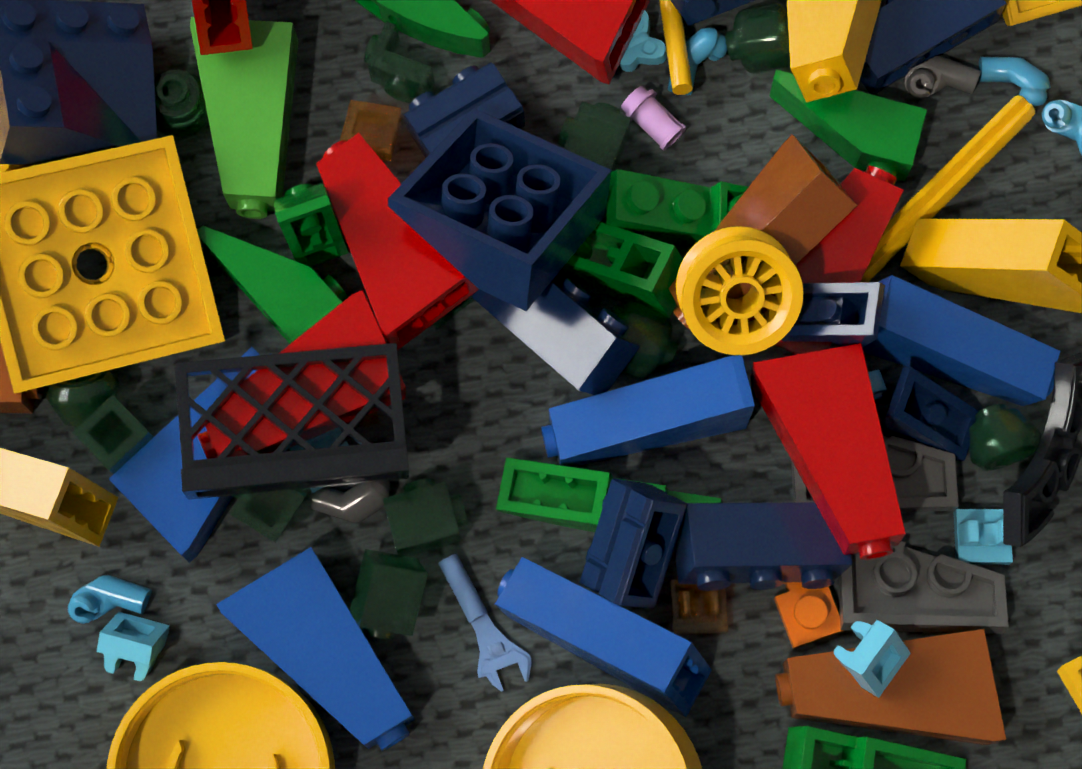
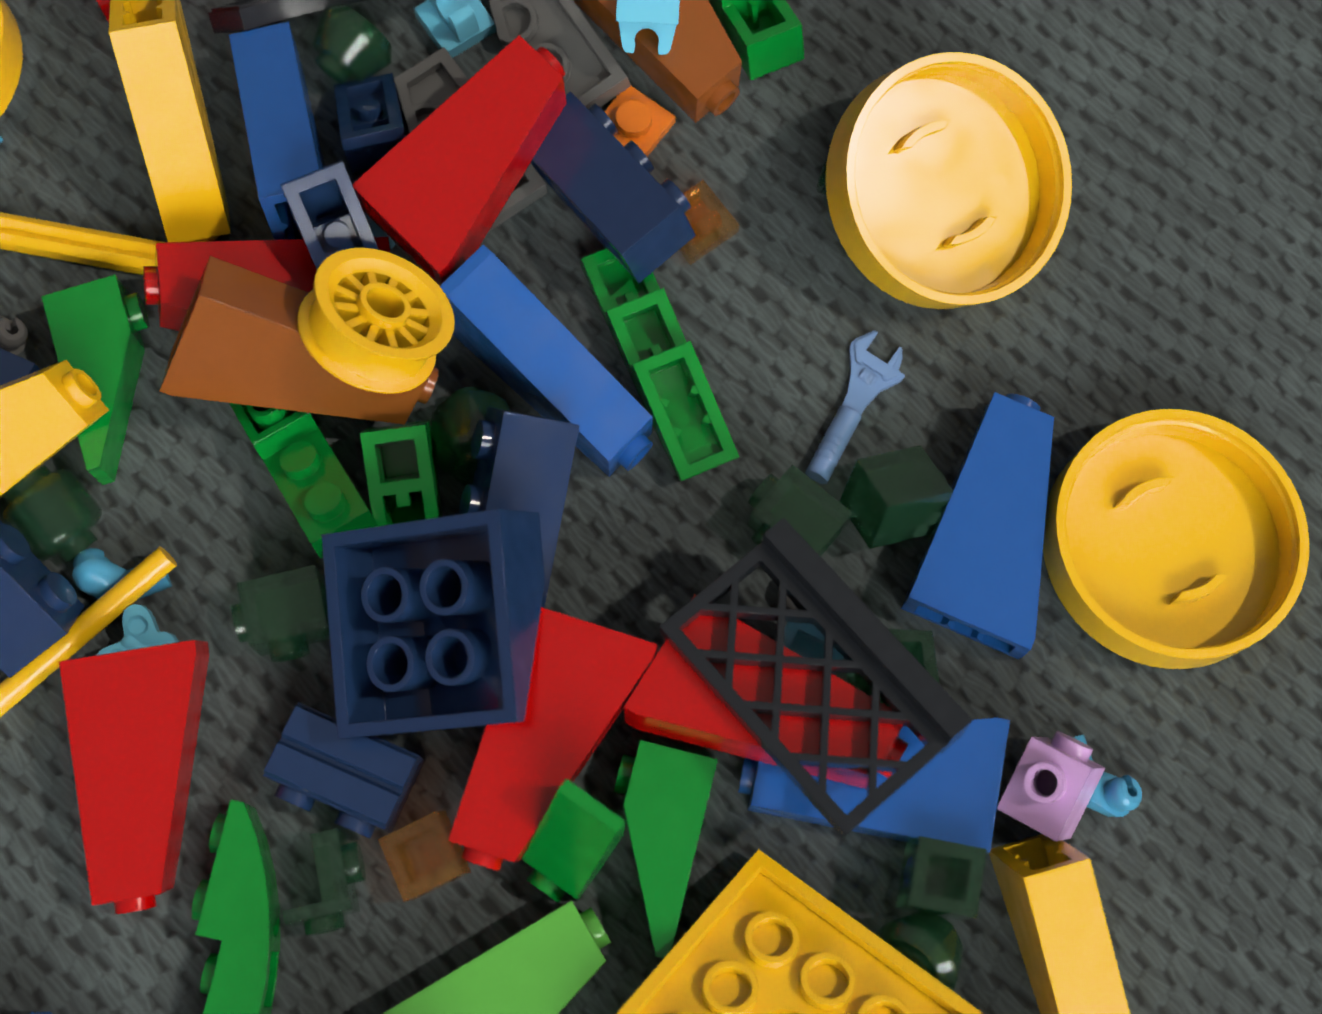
camera: 130 degrees left, 0 degrees up
(120, 554) = (1052, 785): none -> lavender brick
(132, 640) = (1117, 718): medium azure tile -> none
(604, 635) = (791, 277): blue slope -> none
(633, 543) = (690, 290): dark blue brick -> none
(653, 117) = (215, 577): lavender pin -> none

